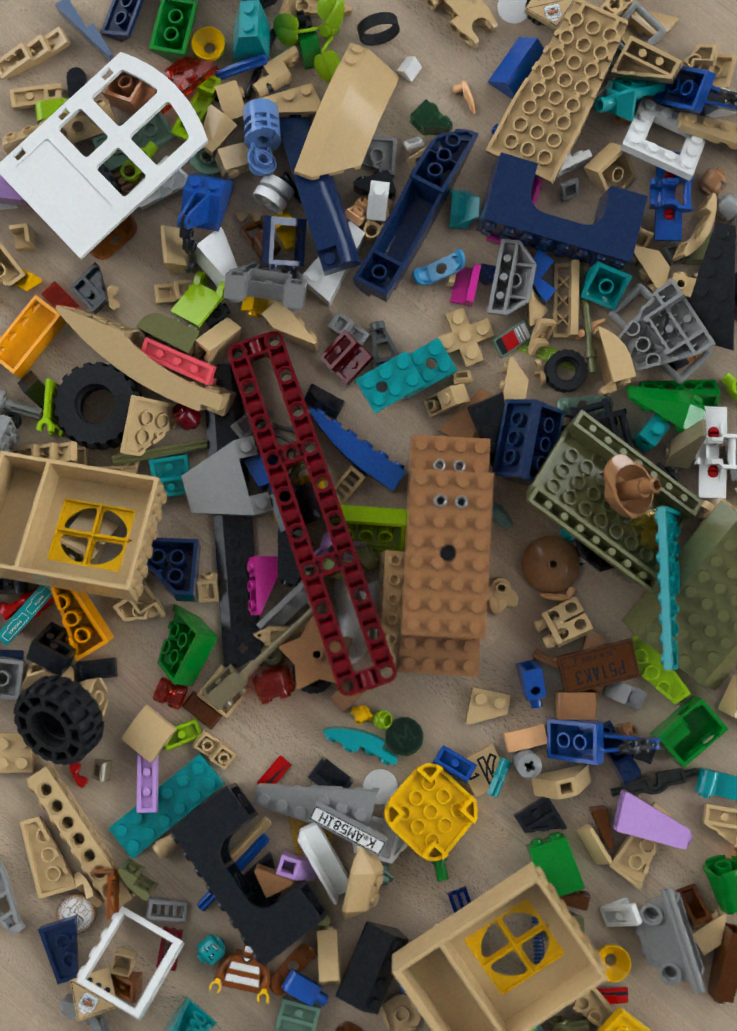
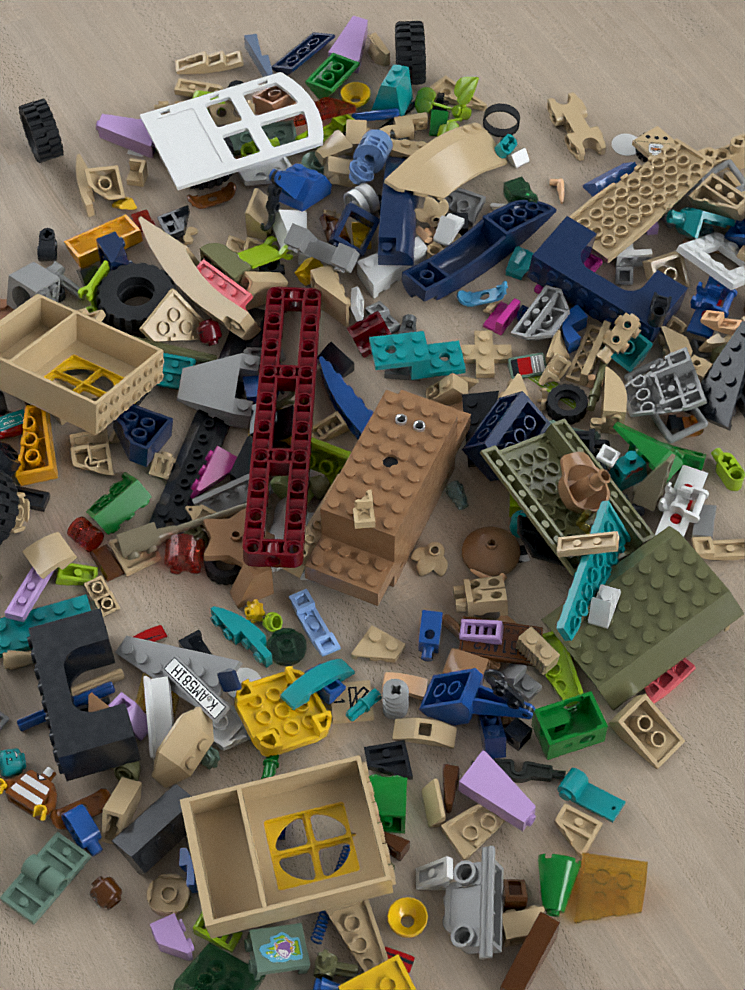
camera: 20 degrees right, 30 degrees down
(48, 358) = (112, 250): none -> dark blue slope
(319, 327) = (357, 303): none -> white tile
(356, 188) = (432, 210): none -> tan plate
(377, 813) = (229, 680): none -> dark blue slope
(393, 60) = (505, 146): none -> teal beam
(422, 707) = (313, 624): none -> light blue slope
(448, 628) = (364, 512): none -> tan slope
(450, 770) = (314, 680): none -> teal slope
(581, 676) = (482, 624): none -> lavender slope
(598, 279) = (624, 335): none -> tan brick
(631, 235) = (658, 310): none -> black piece
(634, 433) = (607, 455): none -> white slope
(638, 671) = (537, 650): none -> tan brick
(663, 566) = (588, 544): none -> tan tile
(689, 224) = (717, 322): none -> light nougat slope
(689, 610) = (603, 606): none -> white slope

